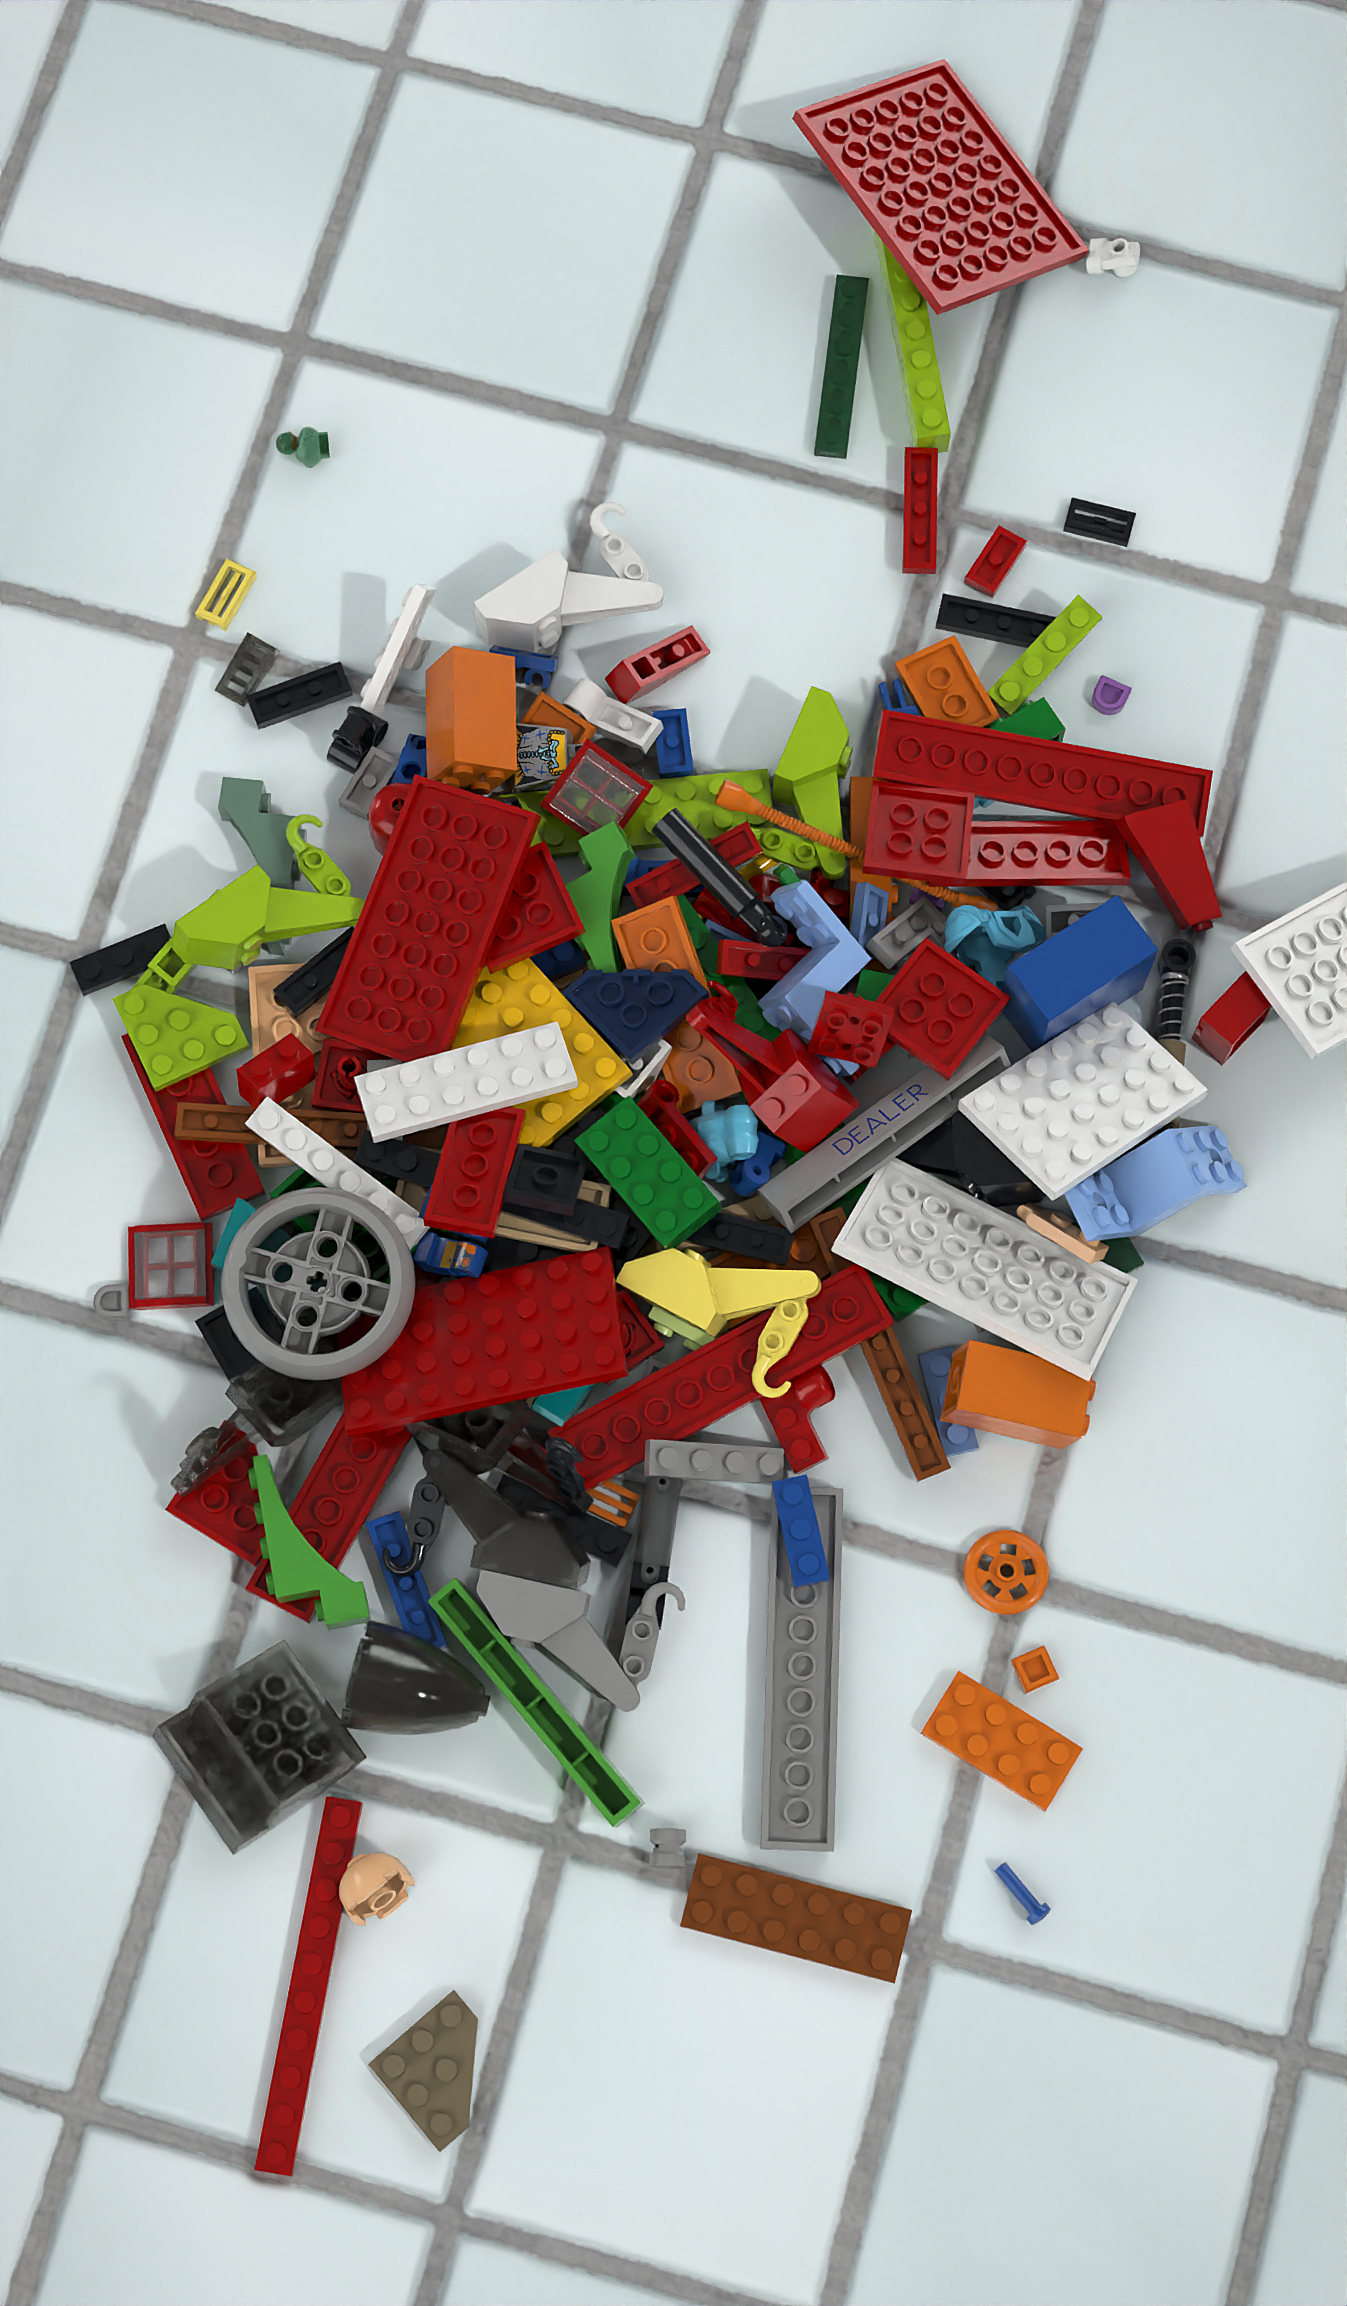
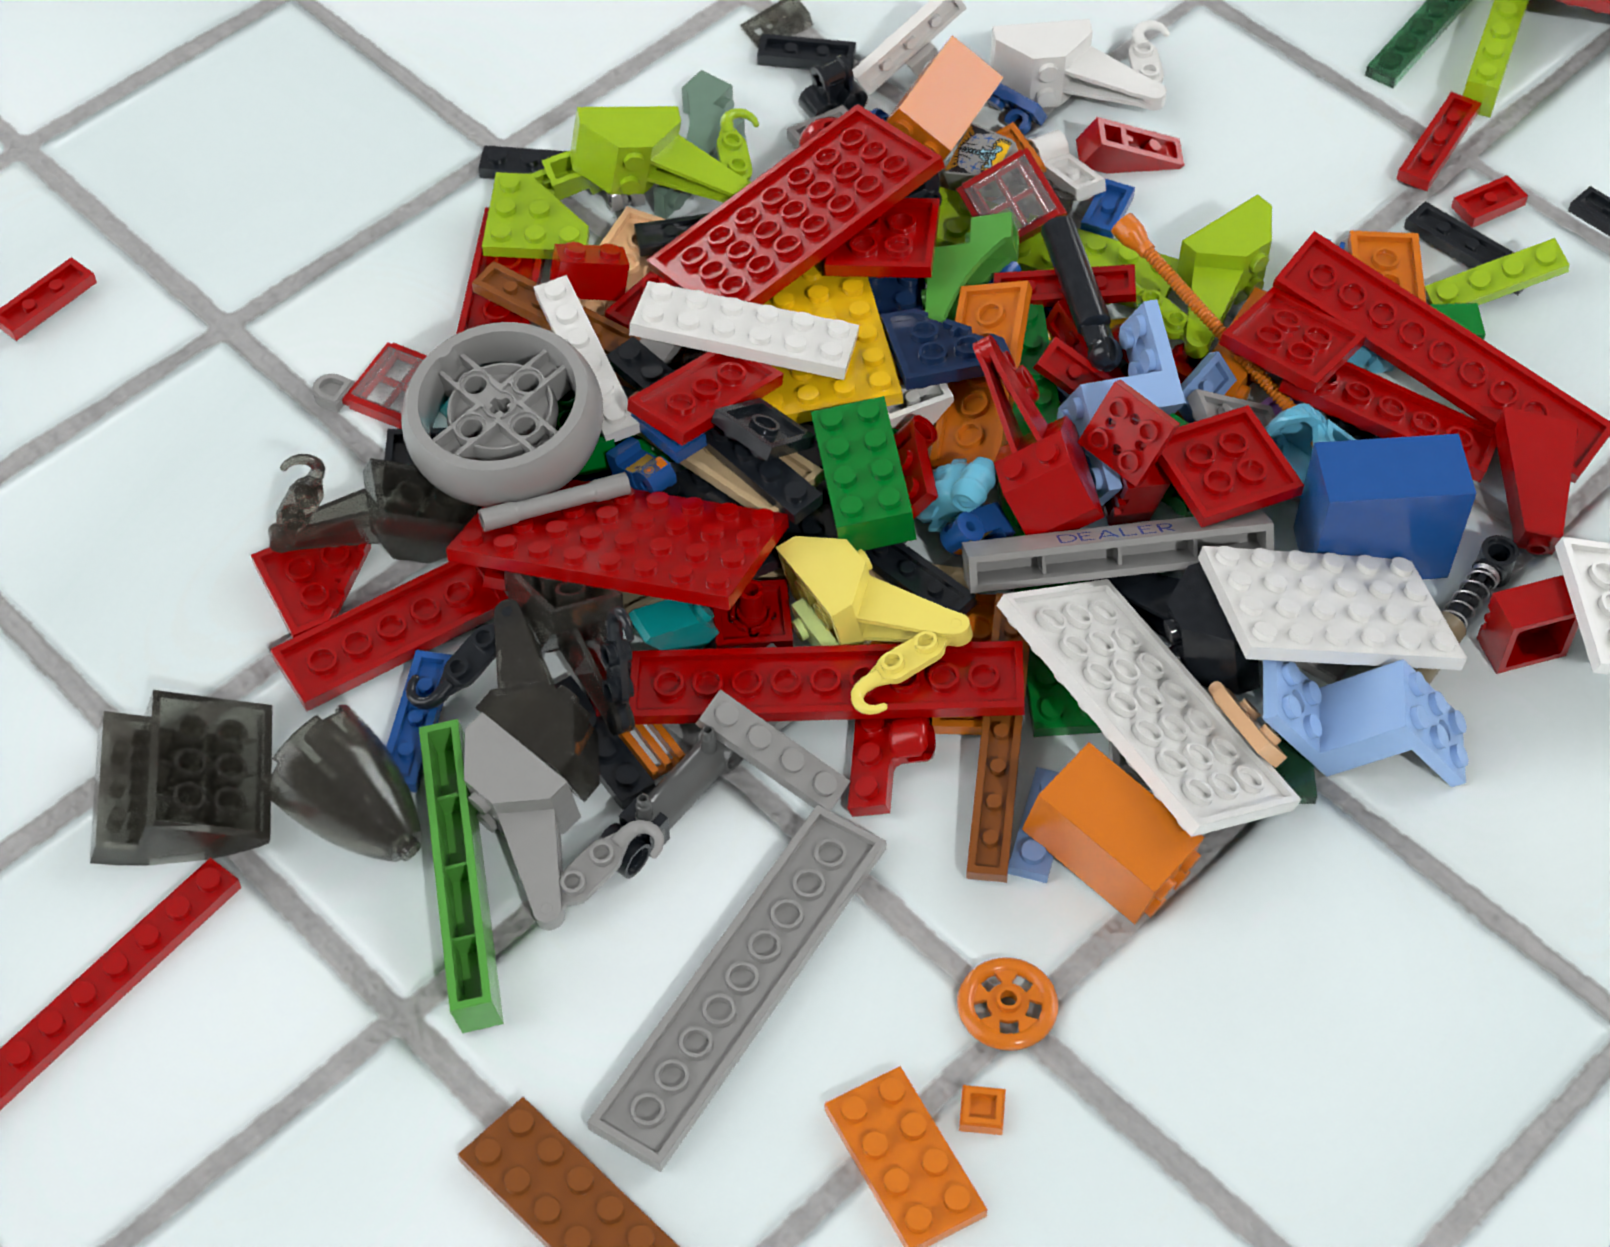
camera: 30 degrees right, 20 degrees down
(296, 1565) = (324, 643): bright green arch -> none
(374, 1886) = (190, 954): light nougat cylinder -> none
(383, 1369) = (513, 512): none -> light grey piece
(434, 2069) = (123, 1158): dark tan plate -> none
(667, 1848) = (495, 1073): light grey wheel -> none
(800, 1531) = (818, 854): blue plate -> none
(1110, 696) = (1545, 341): medium lavender tile -> none

